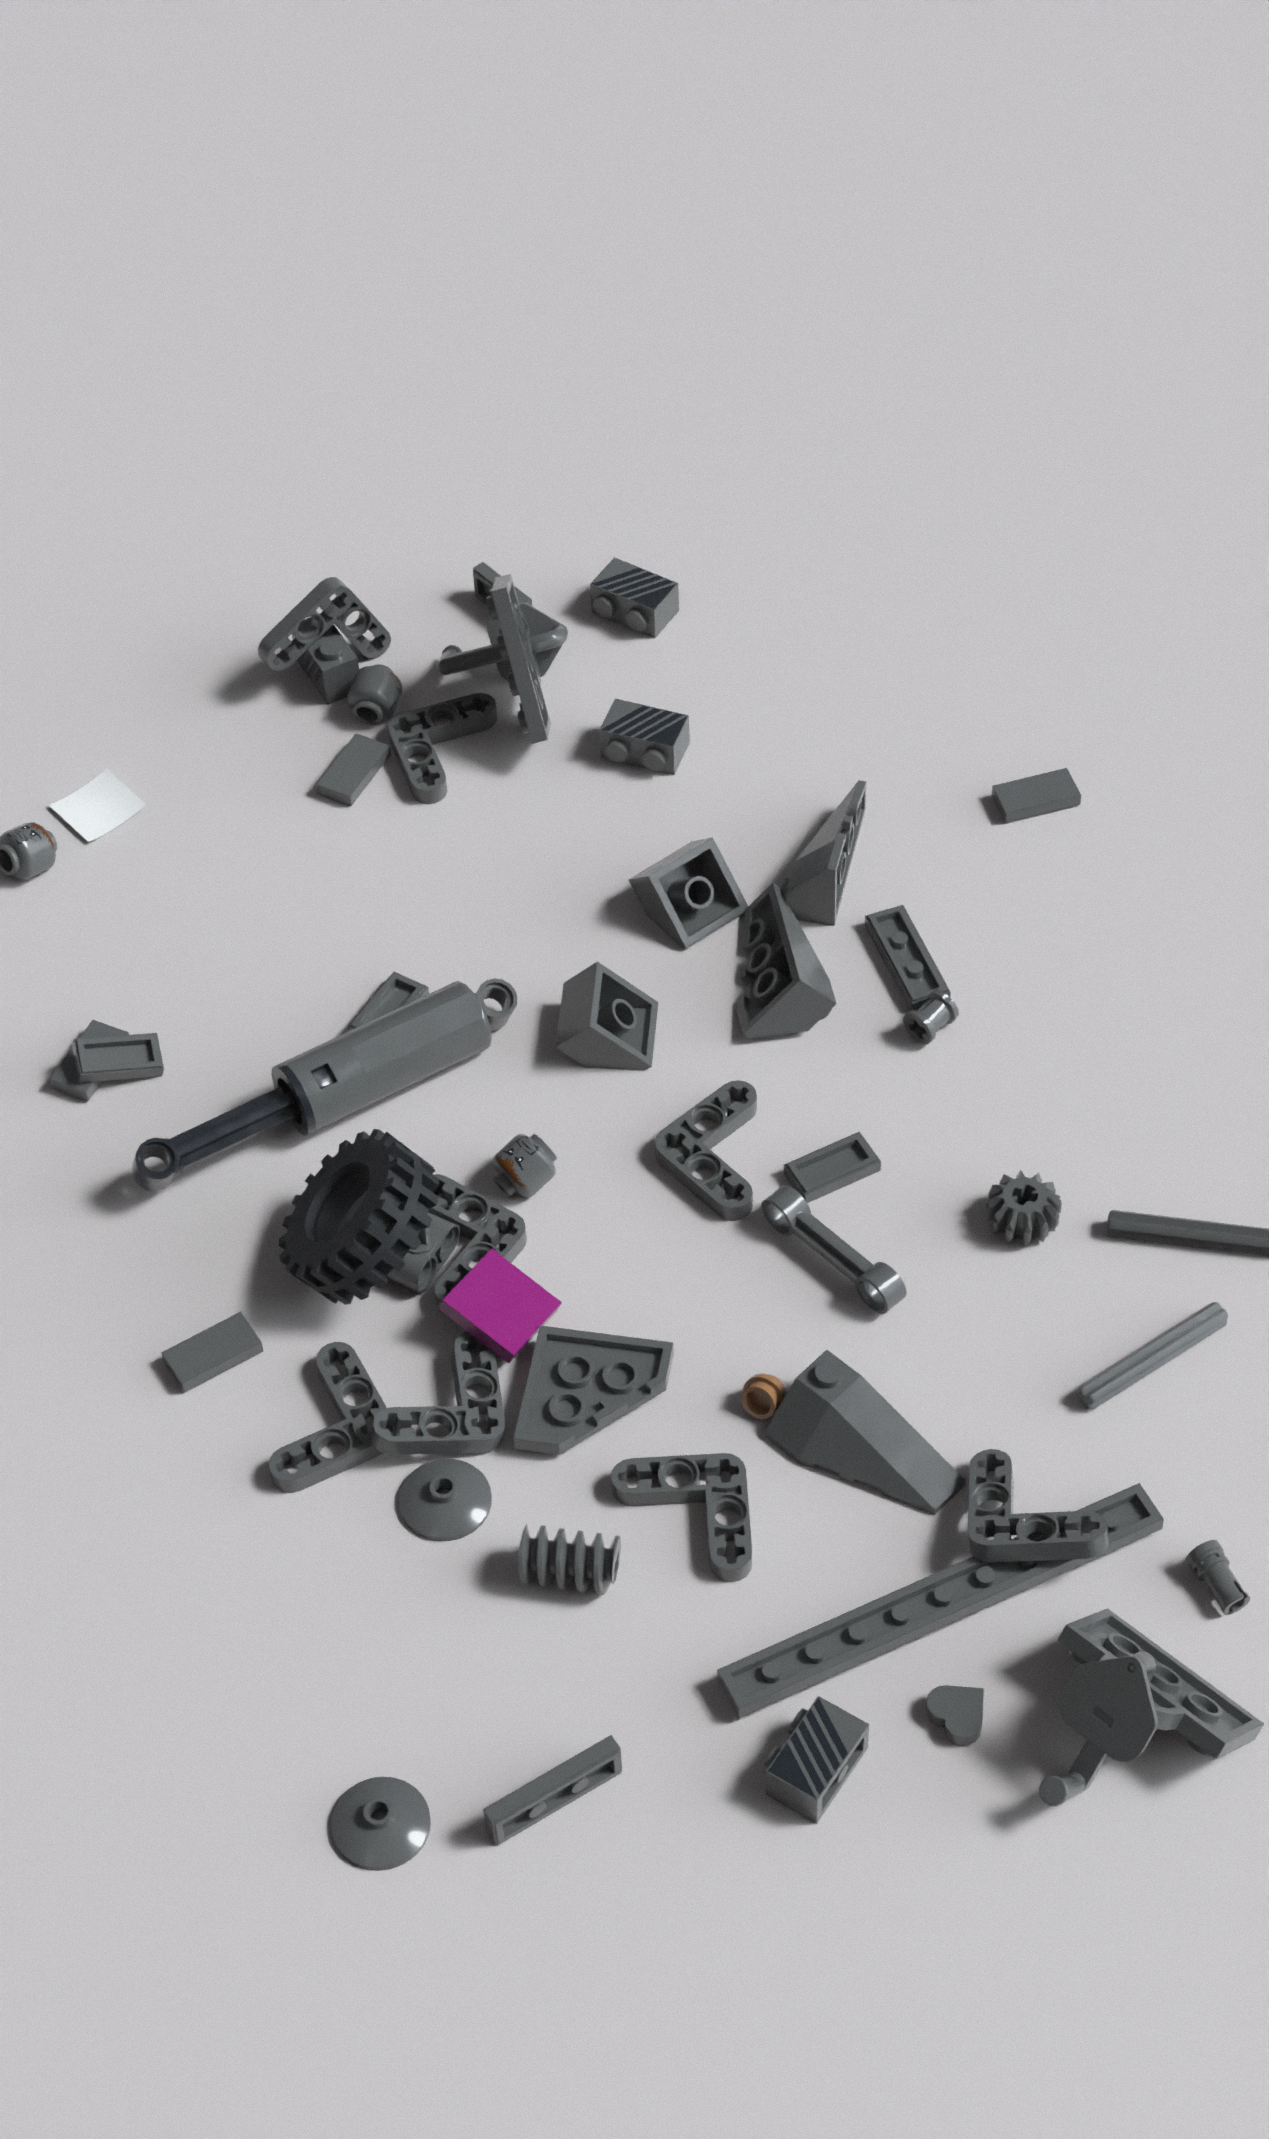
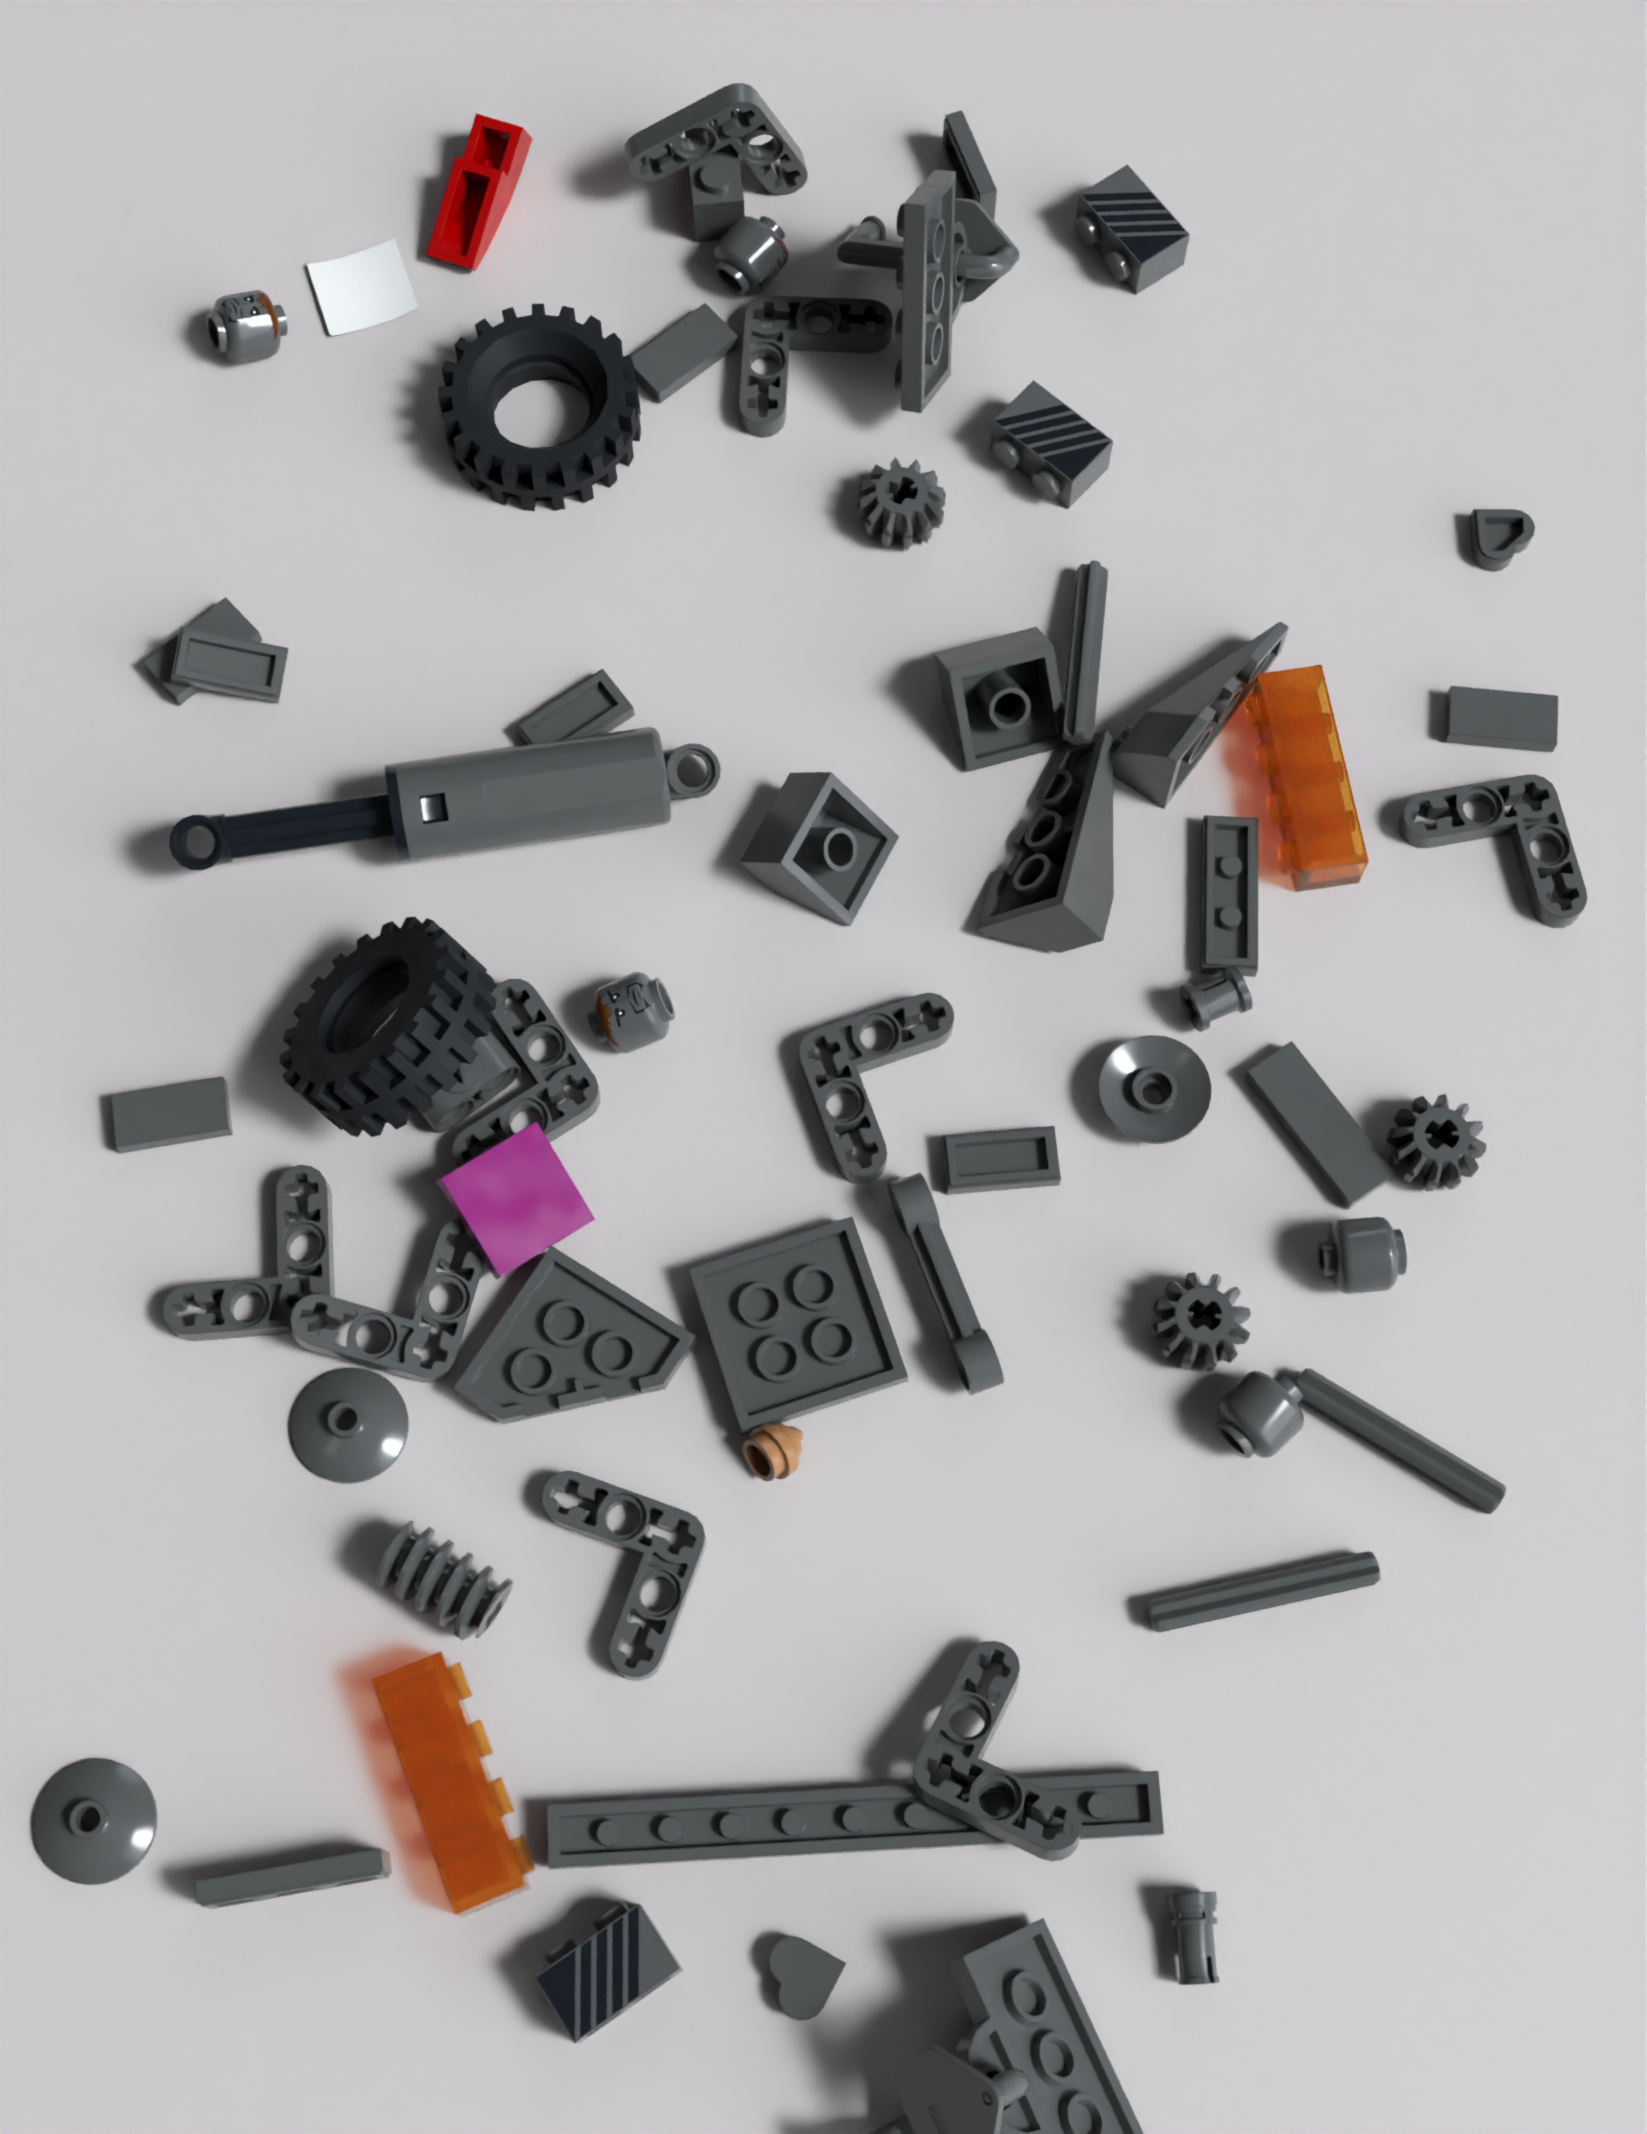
camera: 20 degrees right, 20 degrees up
(157, 719) = (478, 192): none -> red slope
(262, 793) = (530, 351): none -> black tyre
(557, 804) = (901, 503): none -> dark grey gear
(641, 1685) = (452, 1783): none -> clear orange brick
(733, 847) = (1085, 654): none -> dark grey axle
(742, 1313) = (798, 1325): none -> dark grey plate
(849, 1428) = (849, 1547): dark grey wedge -> none
(917, 1083) = (1159, 1065): none -> dark grey dish
(925, 869) = (1306, 778): none -> clear orange brick
(977, 693) = (1498, 536): none -> dark grey tile
(1041, 1068) = (1320, 1125): none -> dark grey tile
(1081, 849) = (1521, 824): none -> dark grey beam
(1093, 1246) = (1260, 1414): none -> dark grey head
(1112, 1127) = (1362, 1255): none -> dark grey head
(1126, 1047) = (1452, 1158): none -> dark grey gear

